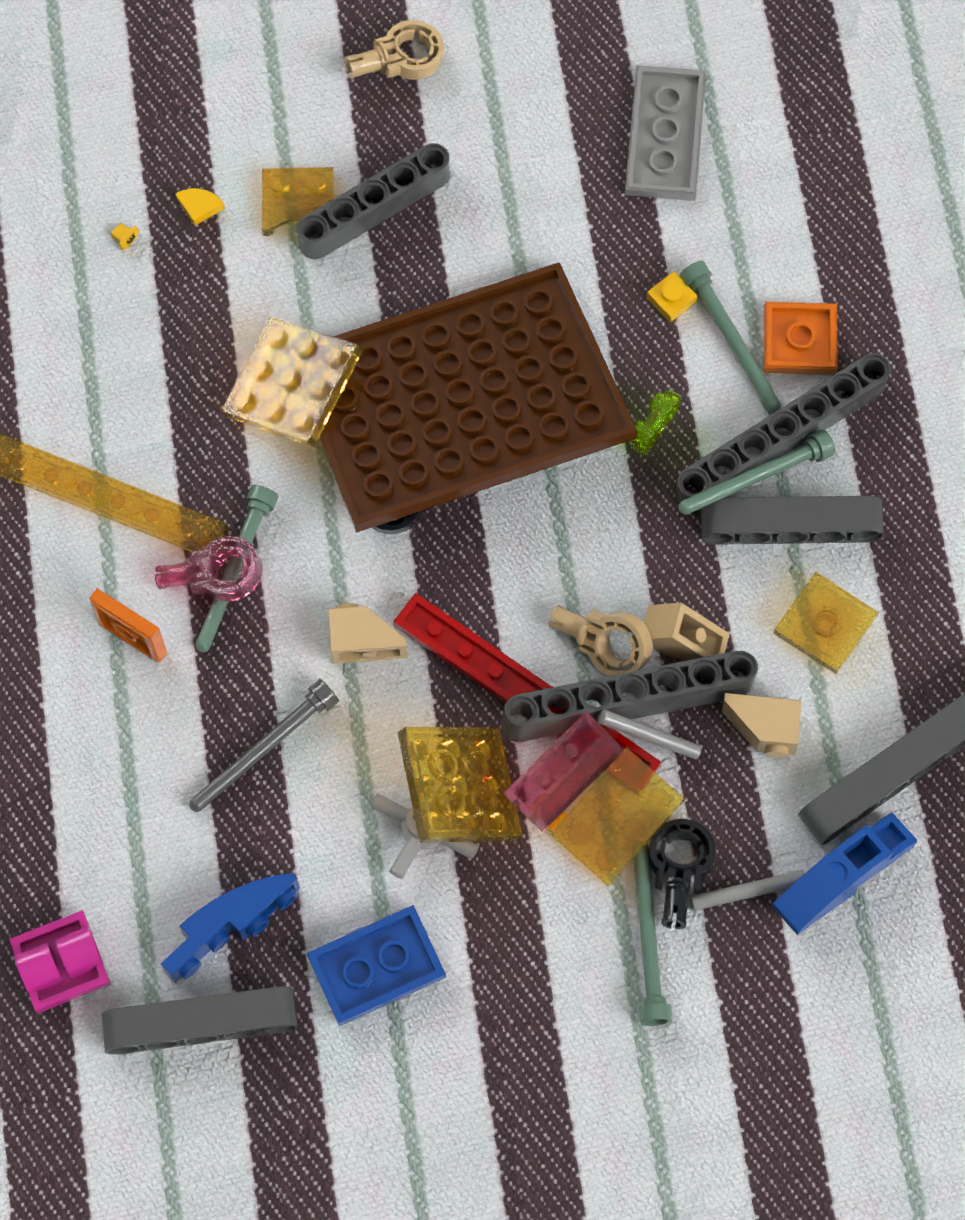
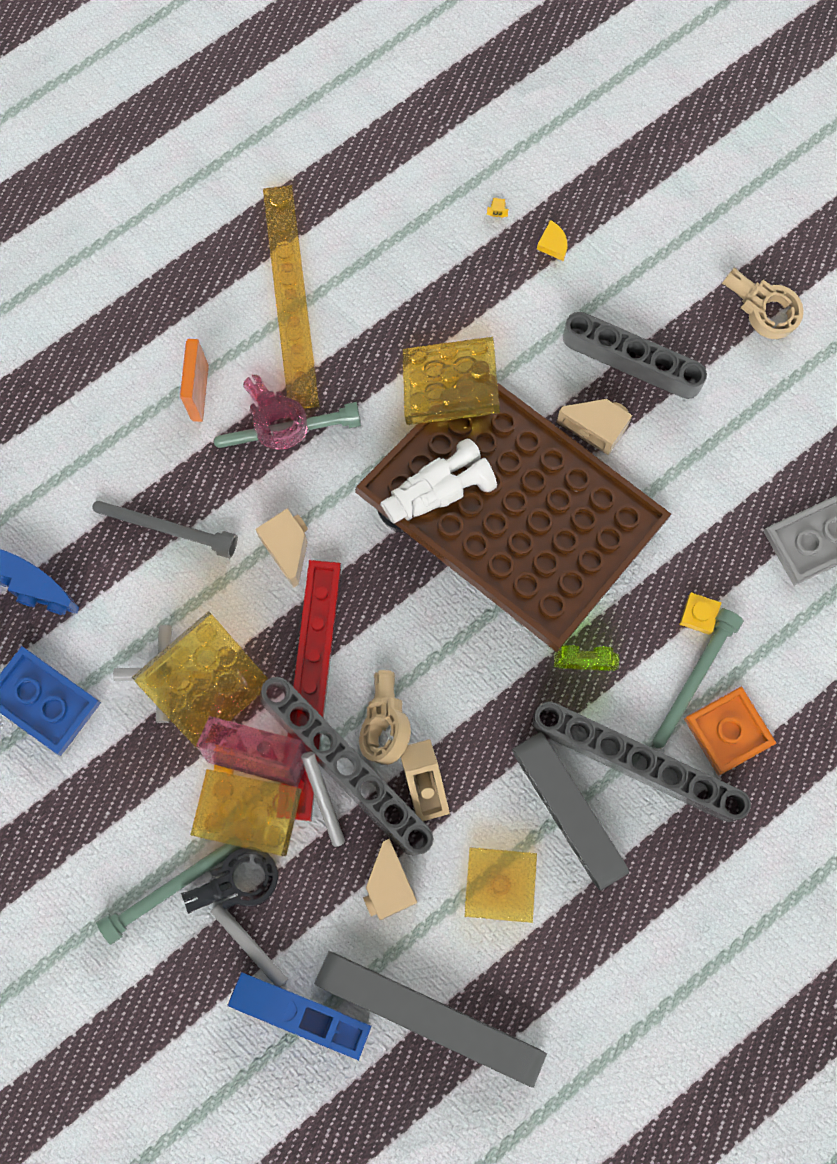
camera: 60 degrees right, 5 degrees up
(293, 193) = (603, 298): clear yellow wing -> none
(406, 447) = (437, 487): none -> white piece
(423, 275) = (596, 422): none -> tan slope
(816, 447) = (642, 794): sand green piece -> none

